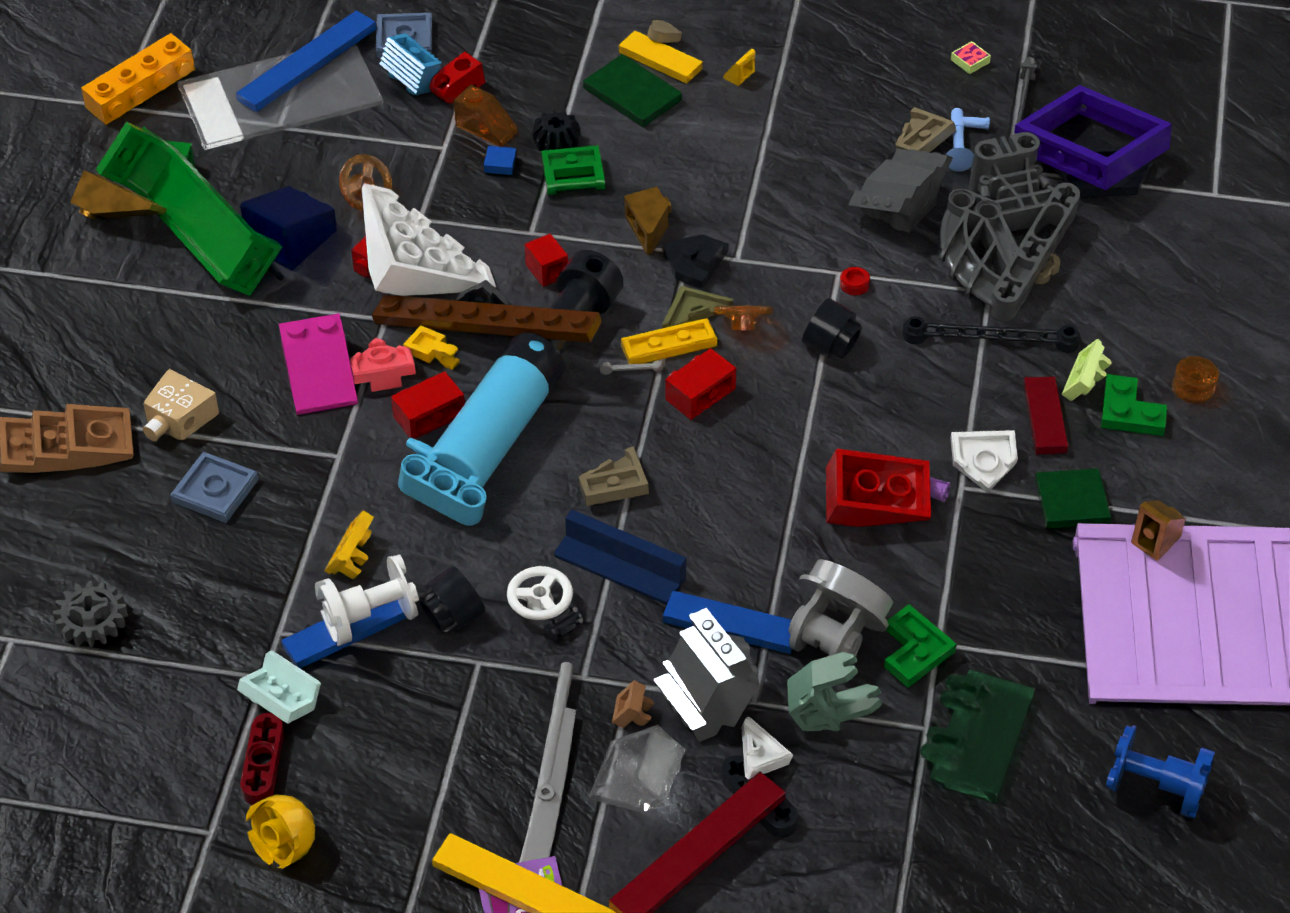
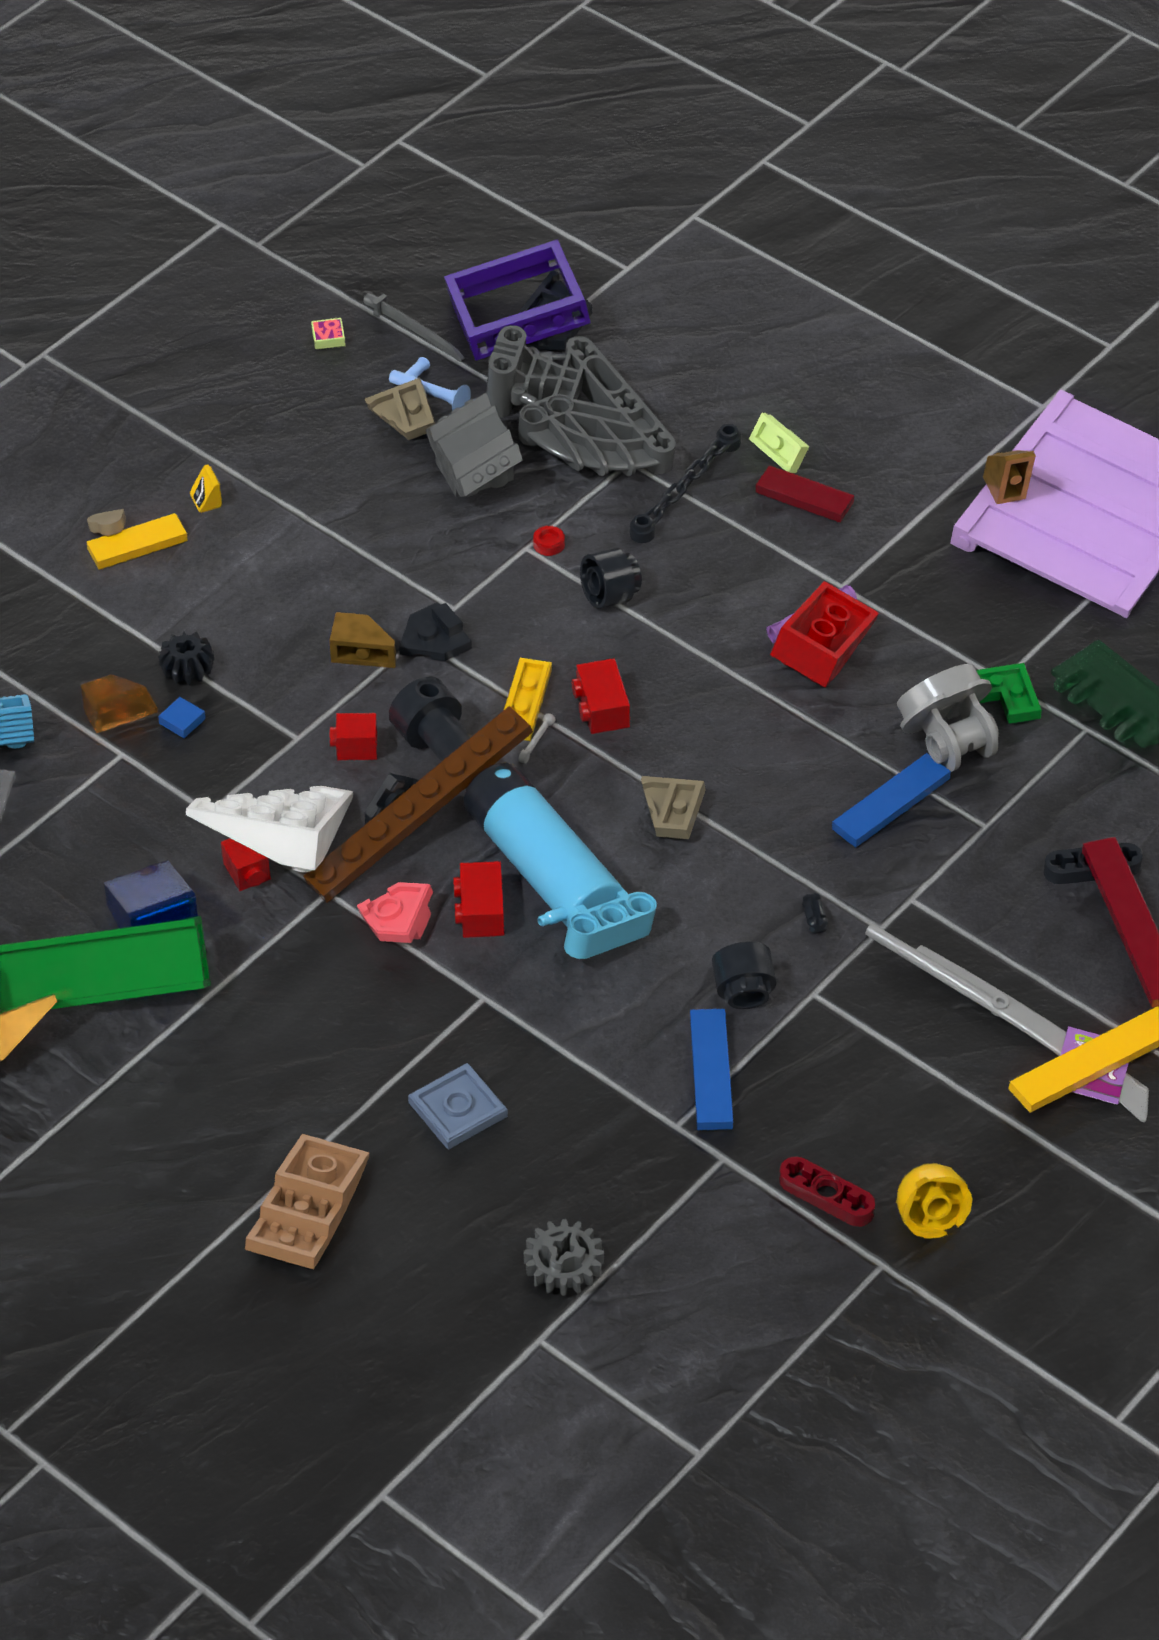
camera: 60 degrees left, 0 degrees up
(178, 407) = (334, 1091): tan torso -> none
(281, 688) = (759, 1141): light aqua bracket -> none
(318, 364) = (361, 961): dark pink slope -> none
(346, 552) = (617, 1025): yellow plate -> none
(352, 187) = (135, 828): clear orange piece -> none
(354, 604) = (717, 1050): white piece -> none
(429, 344) = (403, 867): yellow plate -> none
(457, 77) = (42, 698): red leg -> none
(538, 597) = (778, 914): white piece -> none
(573, 162) = (236, 663): green plate -> none
(621, 557) = (767, 841): dark blue panel -> none
(630, 705) = (944, 903): medium nougat tile -> none
(632, 90) = (166, 581): dark green tile -> none
(639, 770) = (1019, 928): clear slope -> none
(692, 306) = (492, 663): olive tile -> none
(708, 677) = (969, 828): dark grey slope -> none
(742, 316) = (541, 627): clear orange piece -> none
(761, 750) = (1050, 837): white tile -> none
(816, 704) = (1027, 762): sand green piece -> none
(984, 455) = (828, 551): white plate -> none
(1072, 498) = (909, 521): dark green tile -> none
(1125, 413) = (836, 445): green plate -> none
(1195, 379) = (837, 383): clear orange wheel -> none

